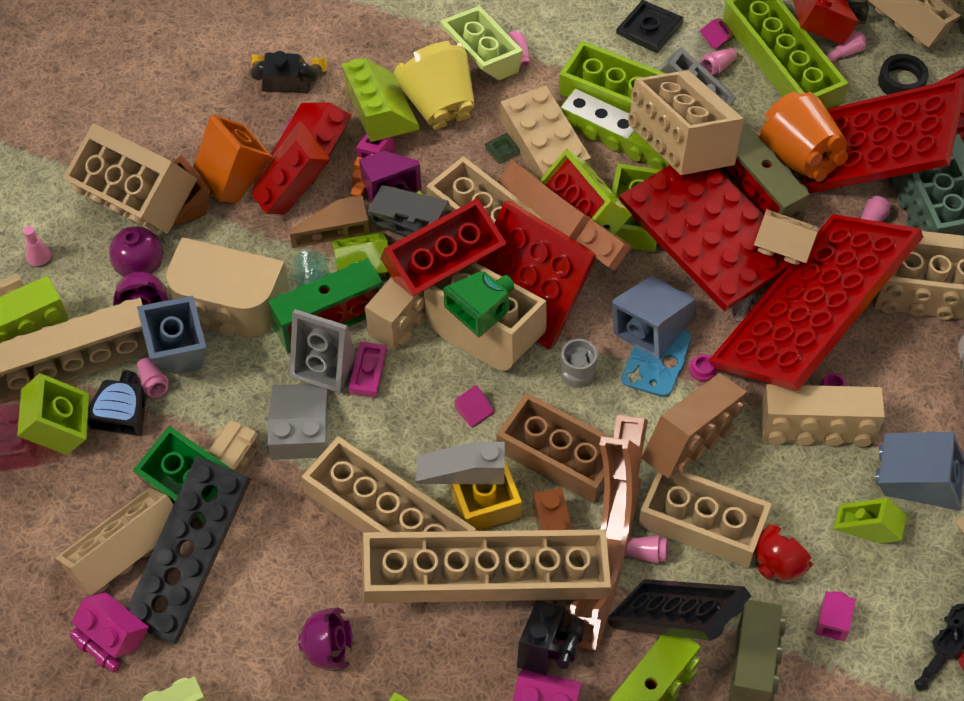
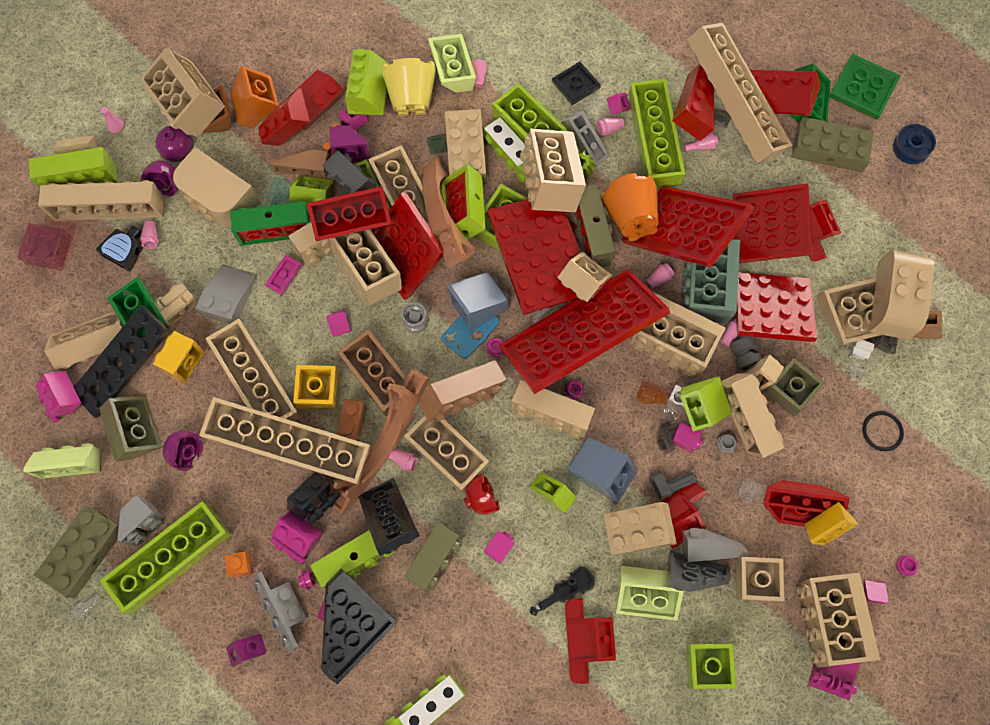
camera: 20 degrees right, 15 degrees up
(53, 414) = (73, 243): lime brick -> none
(173, 334) = (162, 214): sand blue slope -> none
(233, 638) = (129, 427): none -> olive slope
(270, 516) = (178, 357): none -> yellow brick
(286, 71) = (318, 43): black torso -> none
(320, 351) = (251, 258): light grey slope -> none
(463, 464) = (304, 367): light grey slope -> none
(478, 300) = (354, 260): green torso -> none
(904, 62) = (735, 166): black tyre -> none
(936, 360) = (650, 395): none -> clear orange cone

